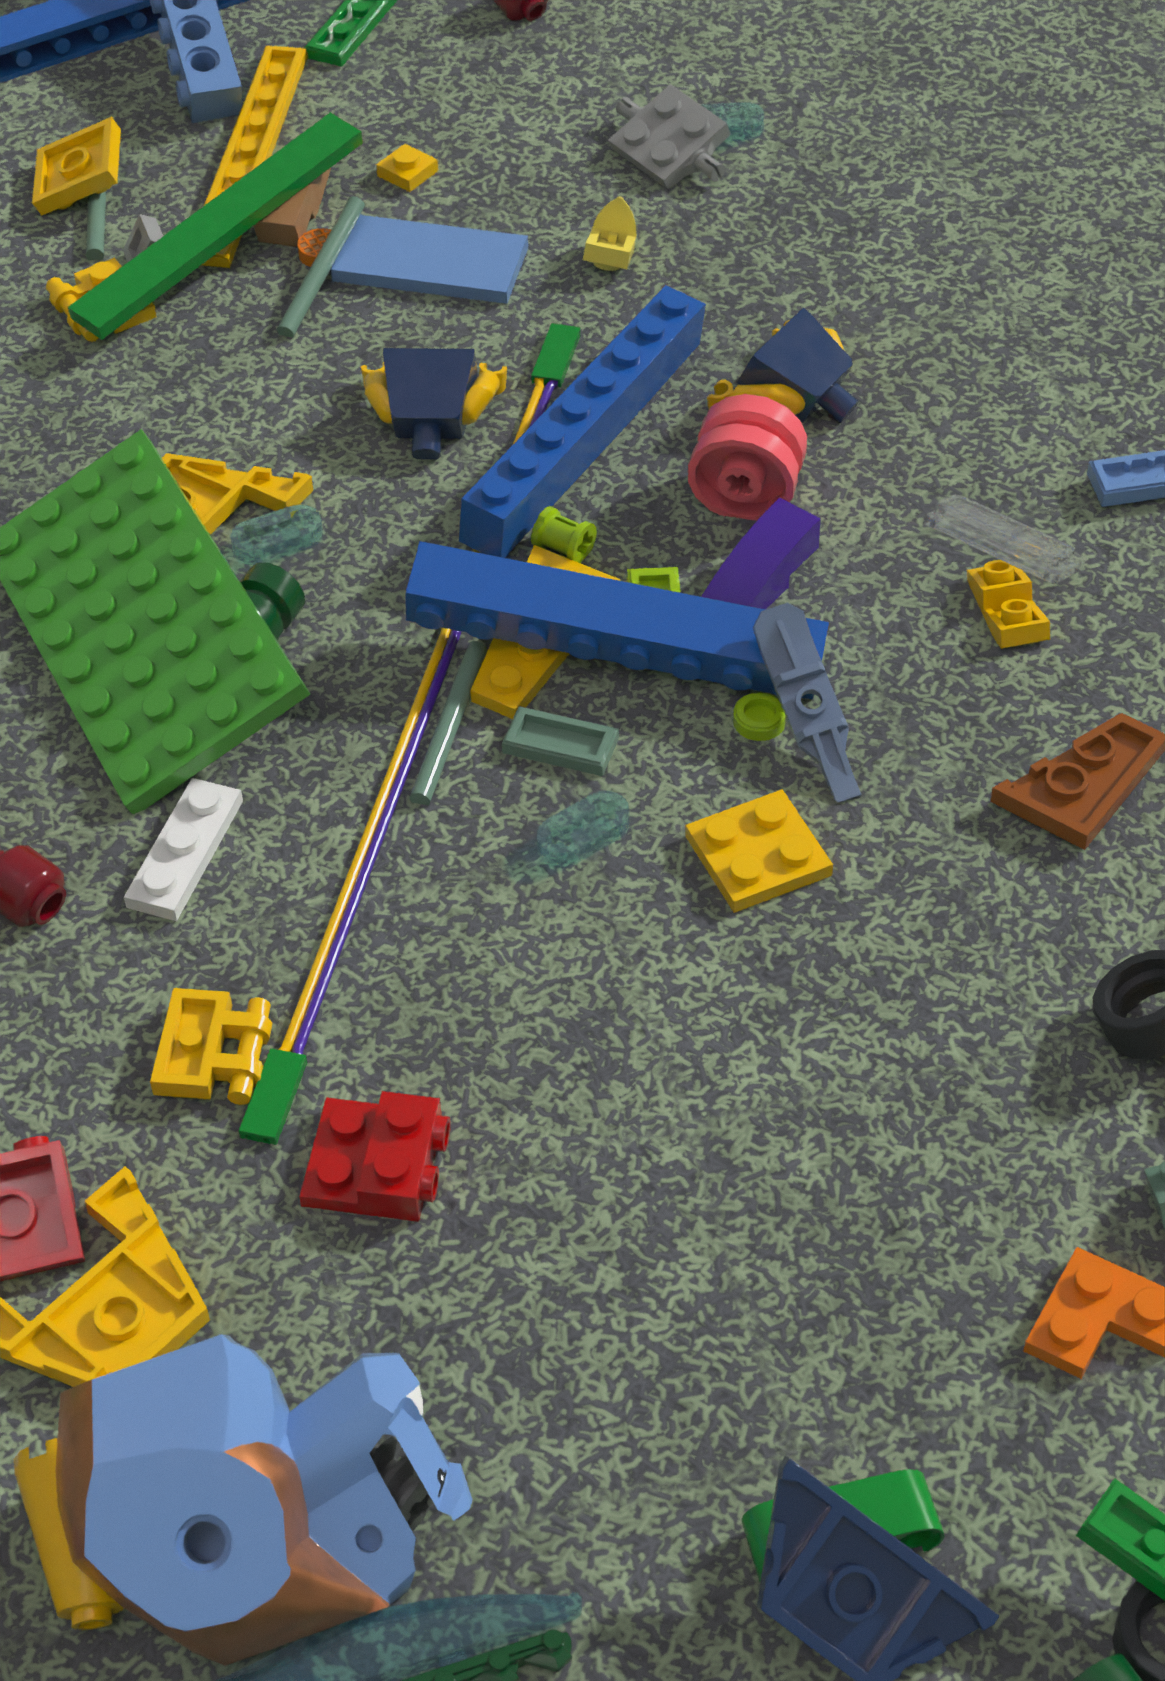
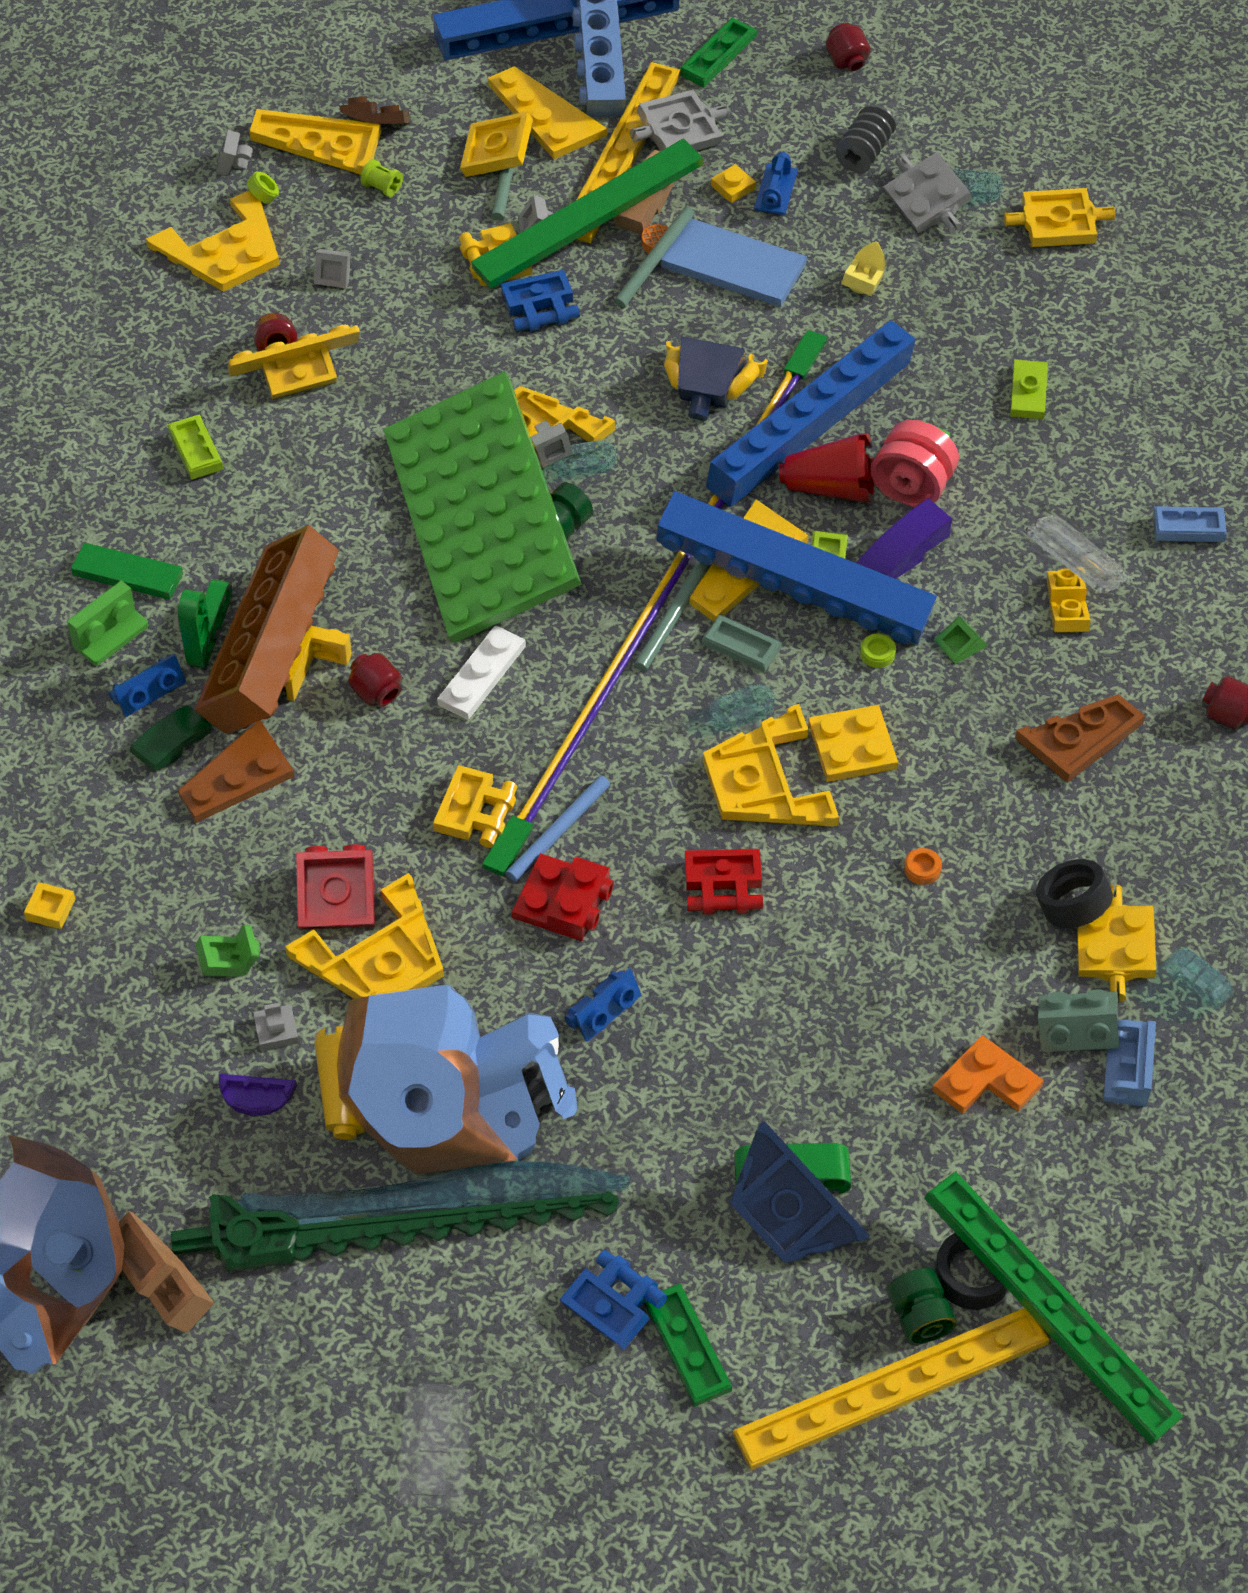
camera: 10 degrees right, 5 degrees up
(149, 131) = (555, 122): none -> yellow wing
(171, 335) = (539, 293): none -> blue plate
(227, 516) = (551, 443): none -> light grey tile
(310, 96) = (679, 118): none -> light grey plate
(344, 1057) = (558, 828): none -> medium blue bar
(466, 159) = (776, 185): none -> blue hinge
(486, 1302) = (610, 1000): none -> blue hinge
(563, 534) = (777, 495): lime bush -> none
(570, 87) = (865, 138): none -> dark grey piece
(615, 1070) = (723, 870): none -> red plate
(626, 934) = (751, 780): none -> yellow wing
(633, 486) = (832, 469): none -> red cone
(797, 369) = (965, 402): dark blue torso -> none
(798, 671) = (908, 626): sand blue piece -> none
(849, 140) = (1059, 217): none -> yellow plate
(871, 348) = (1029, 389): none -> lime plate
(872, 682) = (959, 640): none -> bright green slope
(910, 1008) = (922, 866): none -> orange tile

